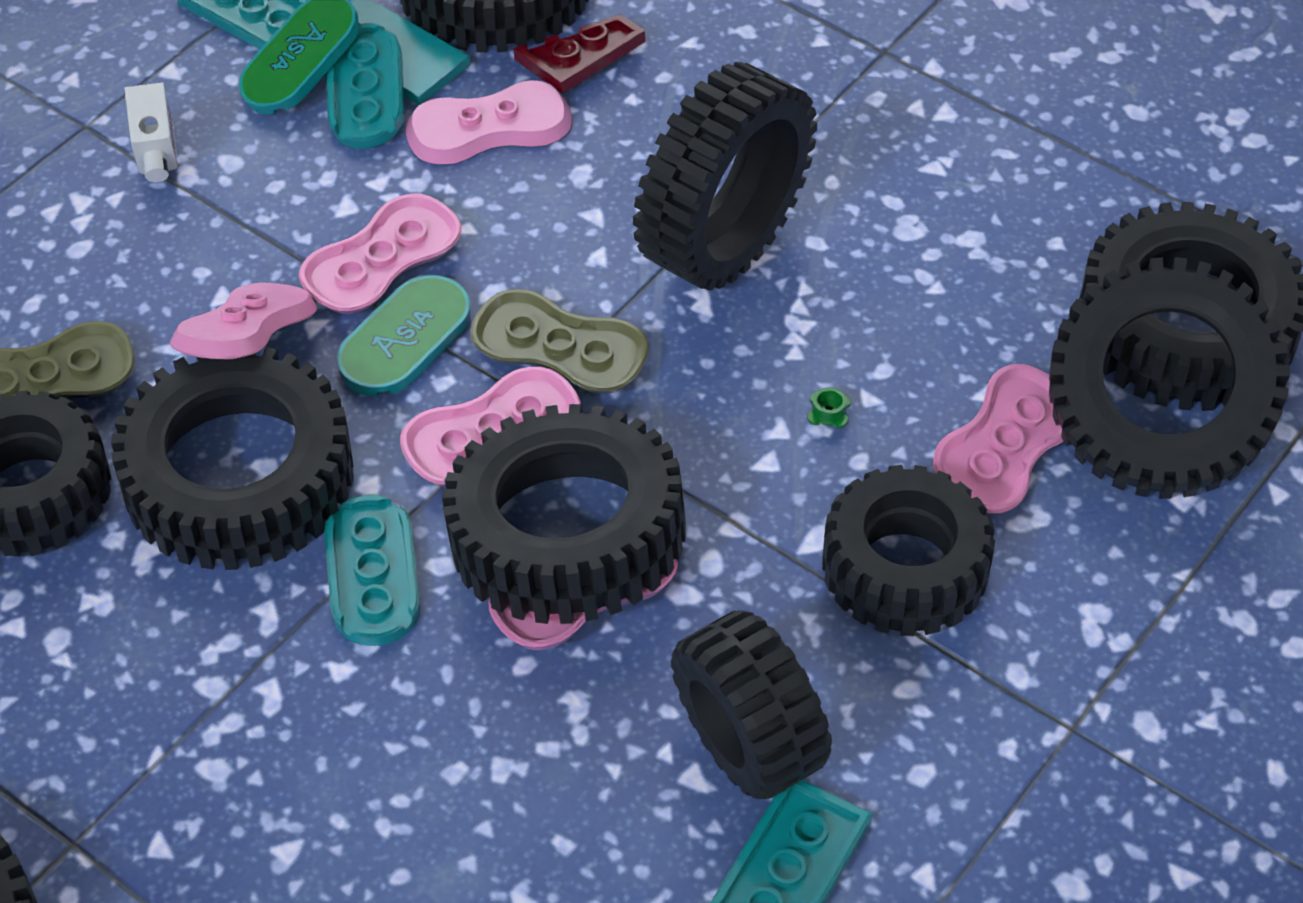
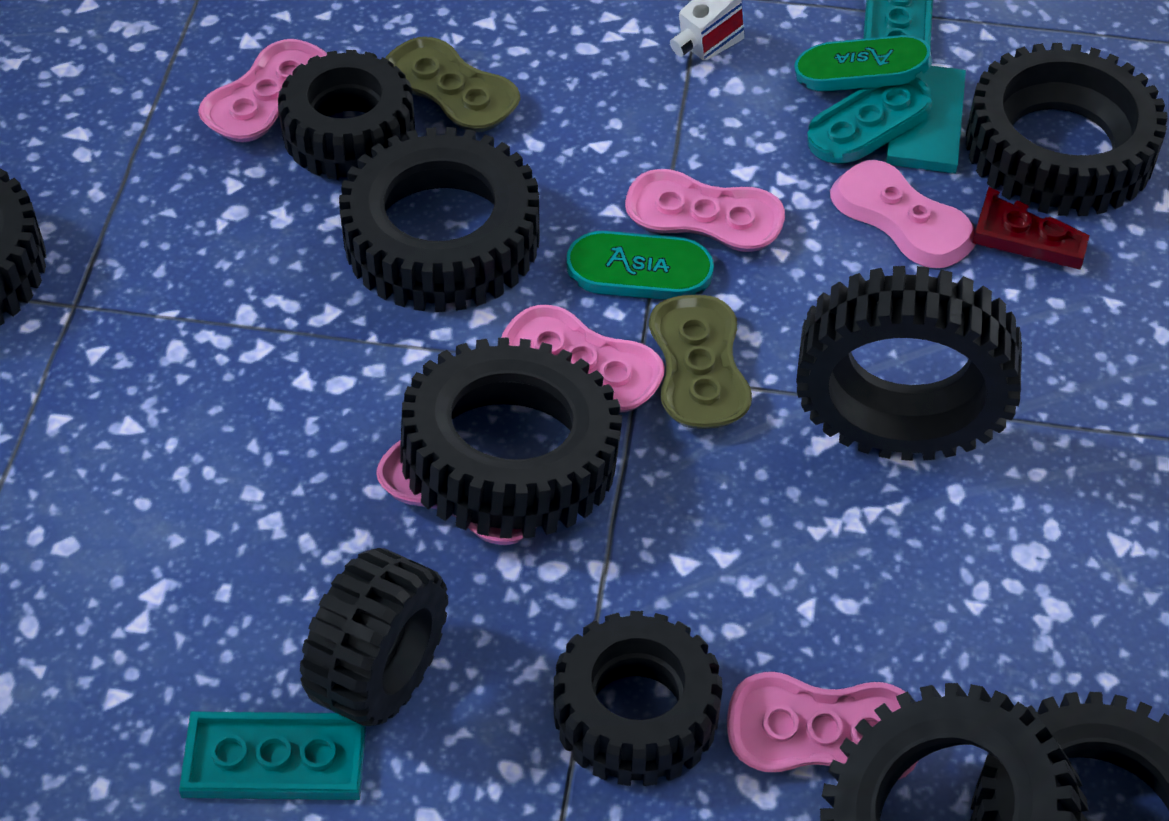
camera: 60 degrees right, 0 degrees up
(243, 321) = (551, 156): bright pink plate -> none
(372, 570) = (385, 360): teal tile -> none
(829, 408) = (770, 570): green plate -> none

